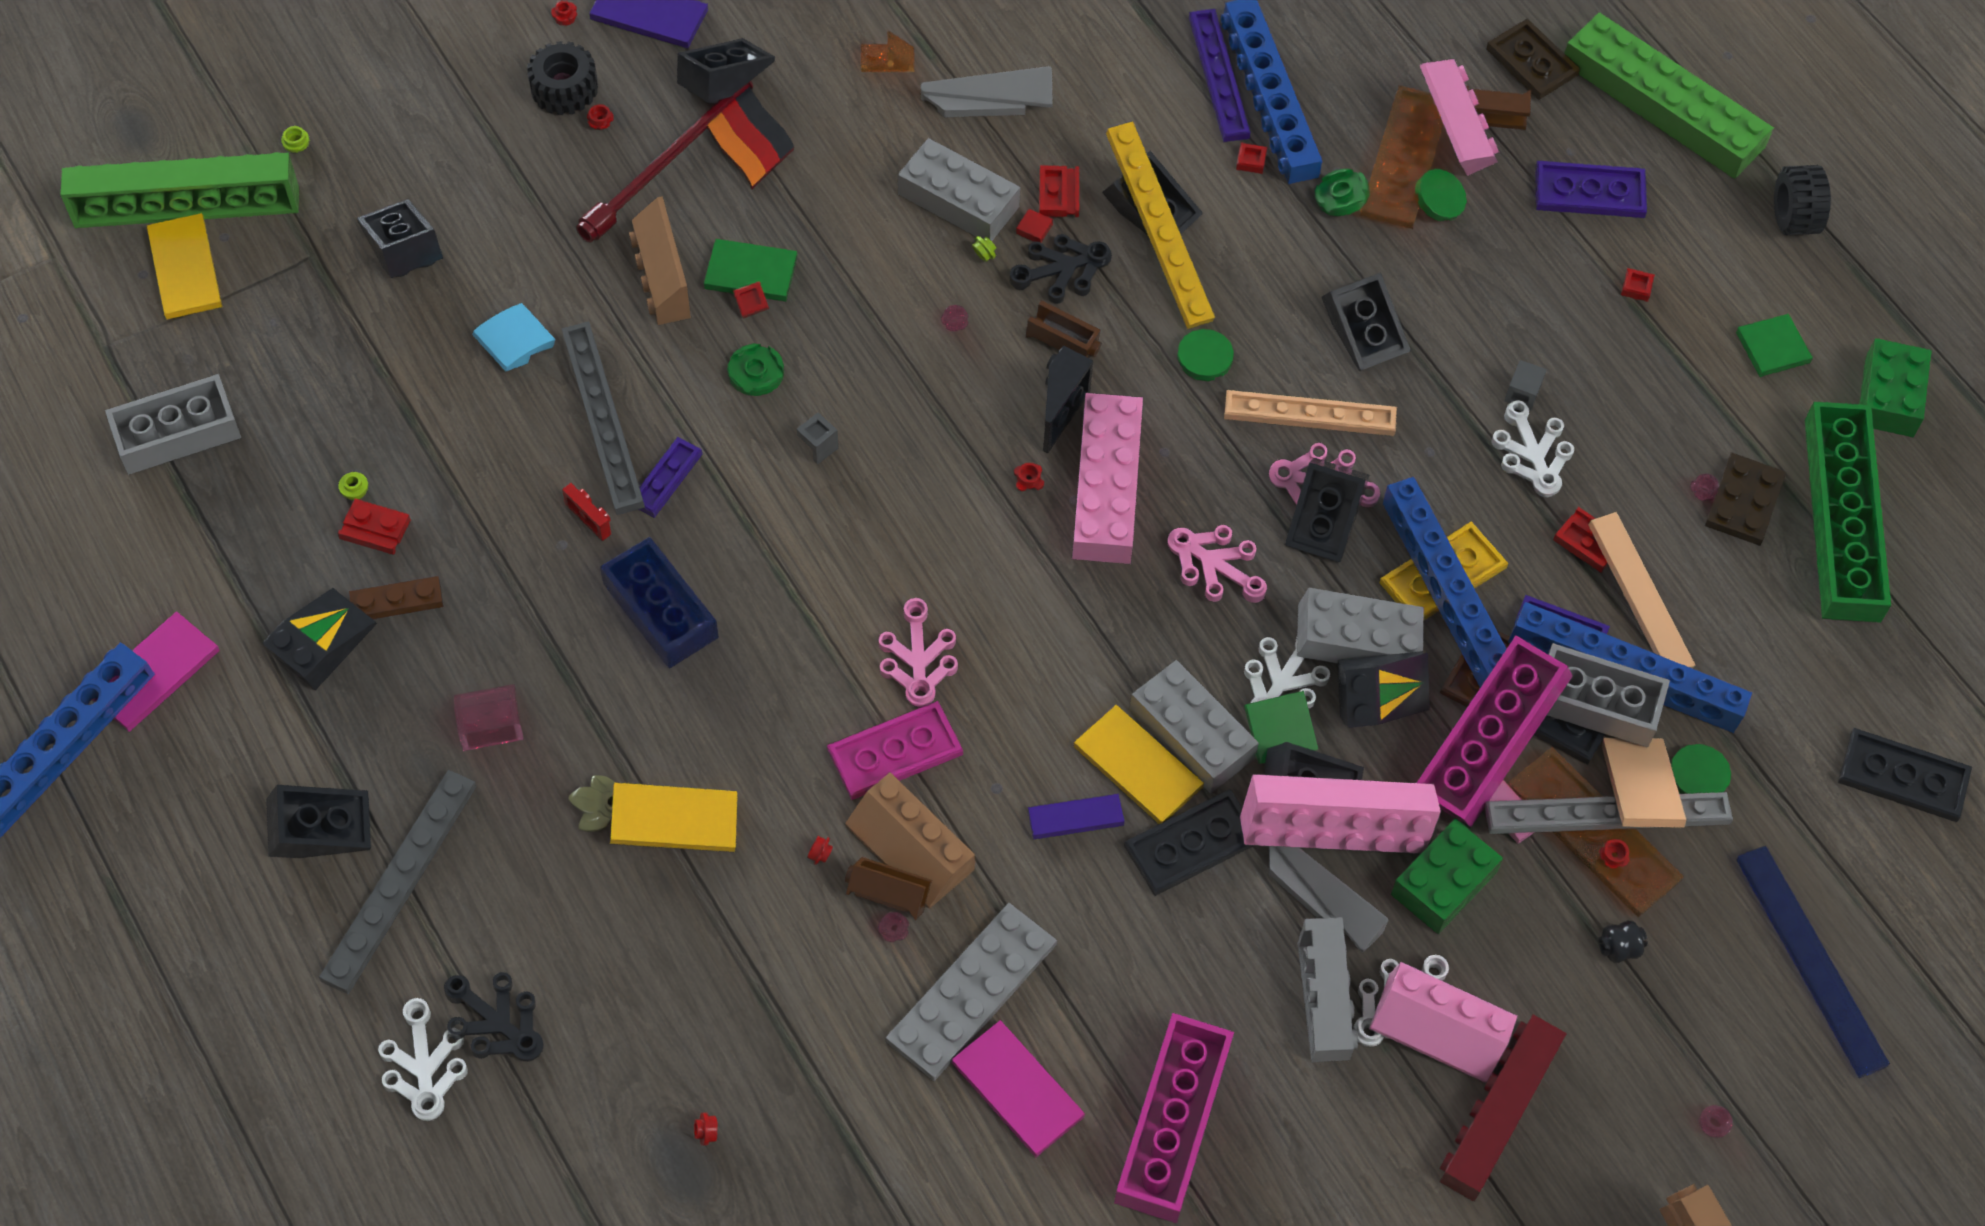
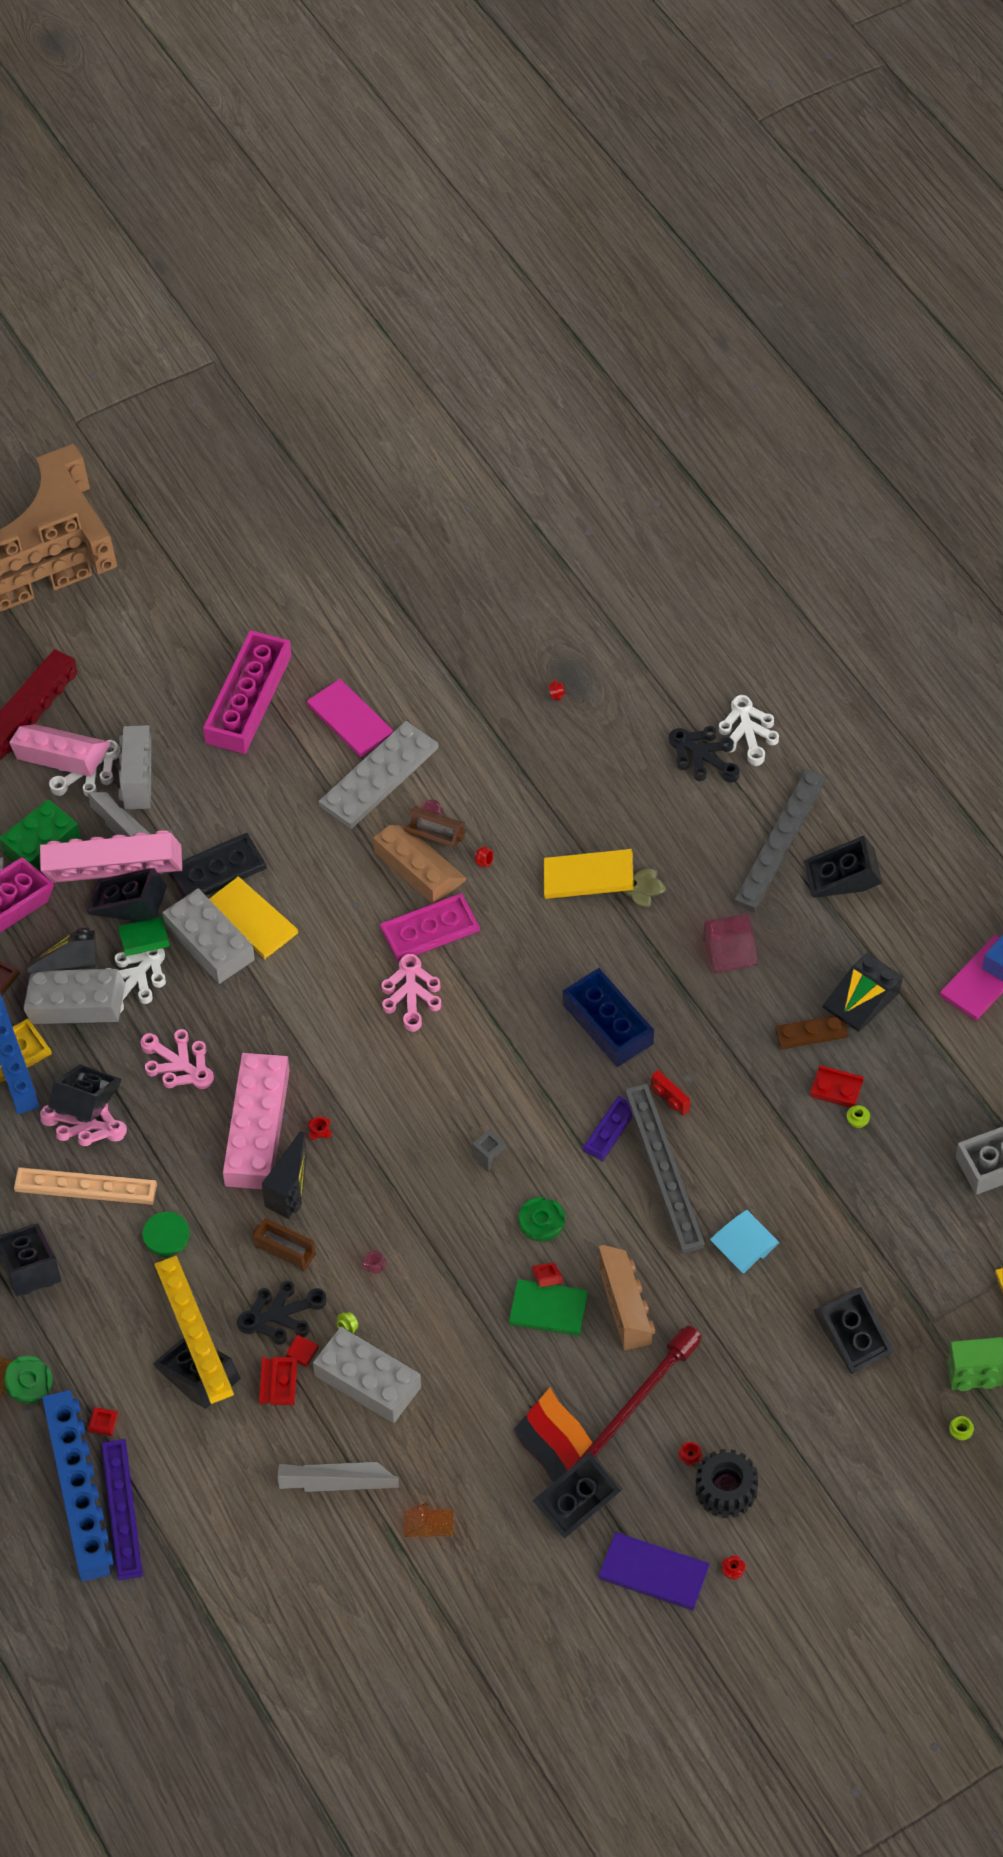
camera: 175 degrees left, 5 degrees down
(1075, 816) = (299, 882): dark purple tile -> none

